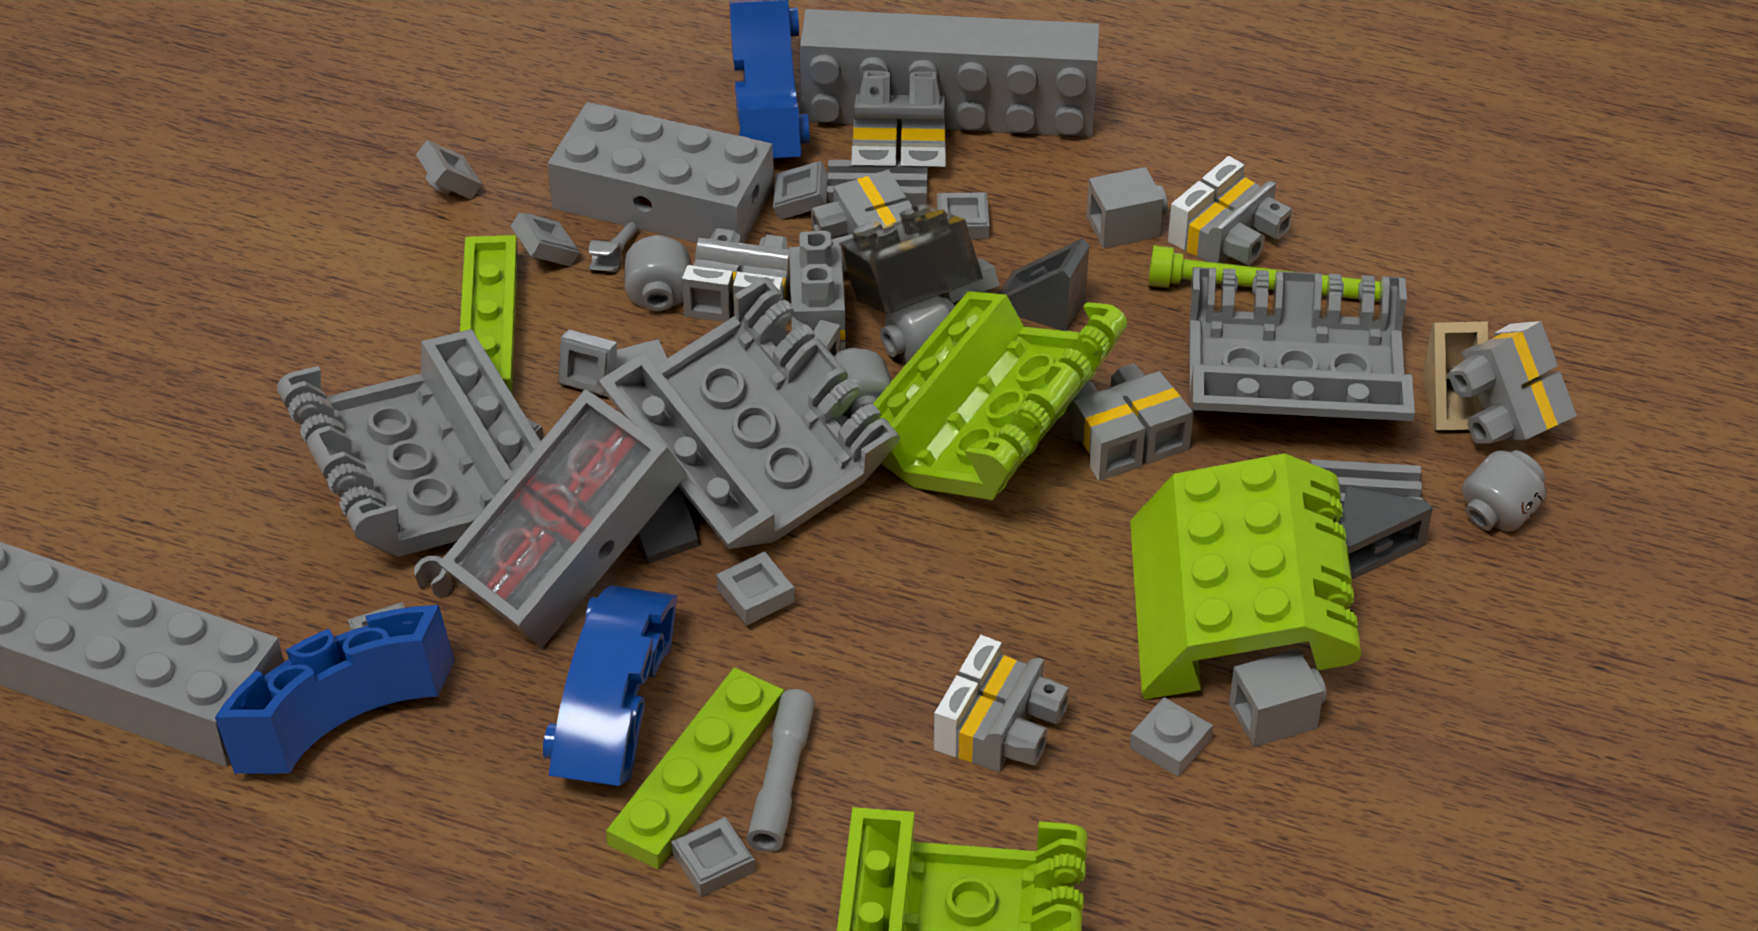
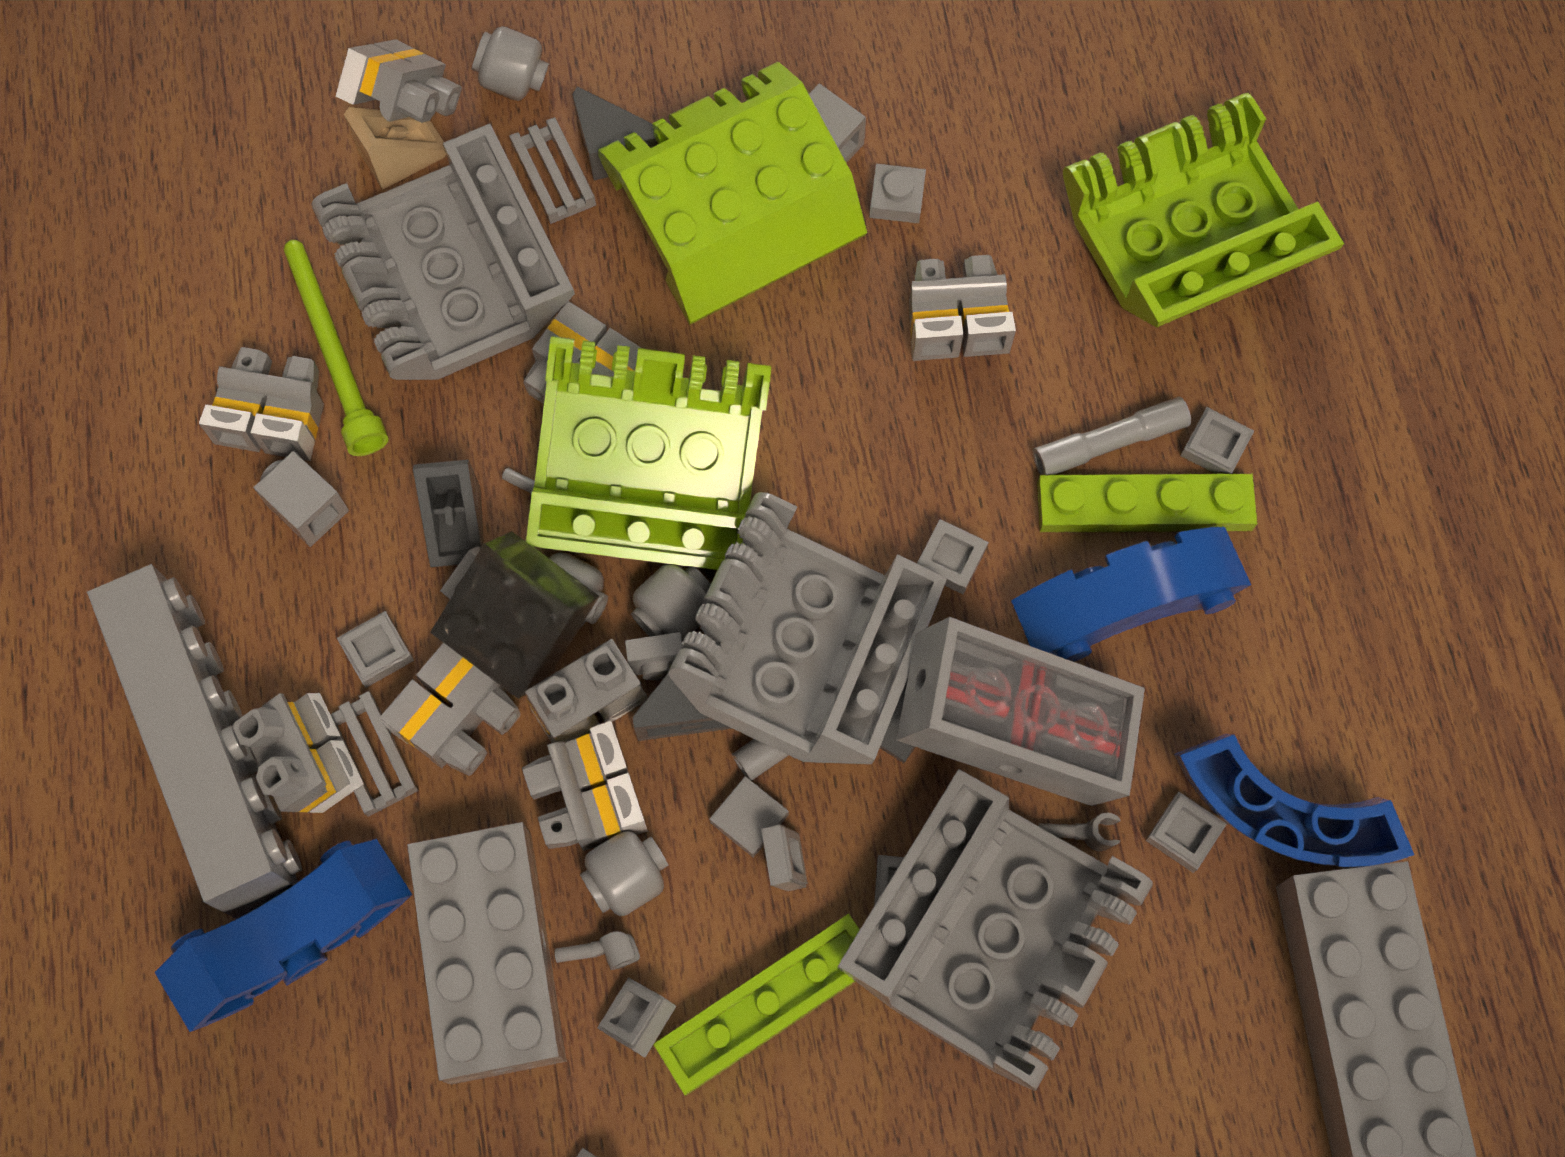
camera: 120 degrees left, 25 degrees up
(800, 190) = (424, 812): light grey tile -> none

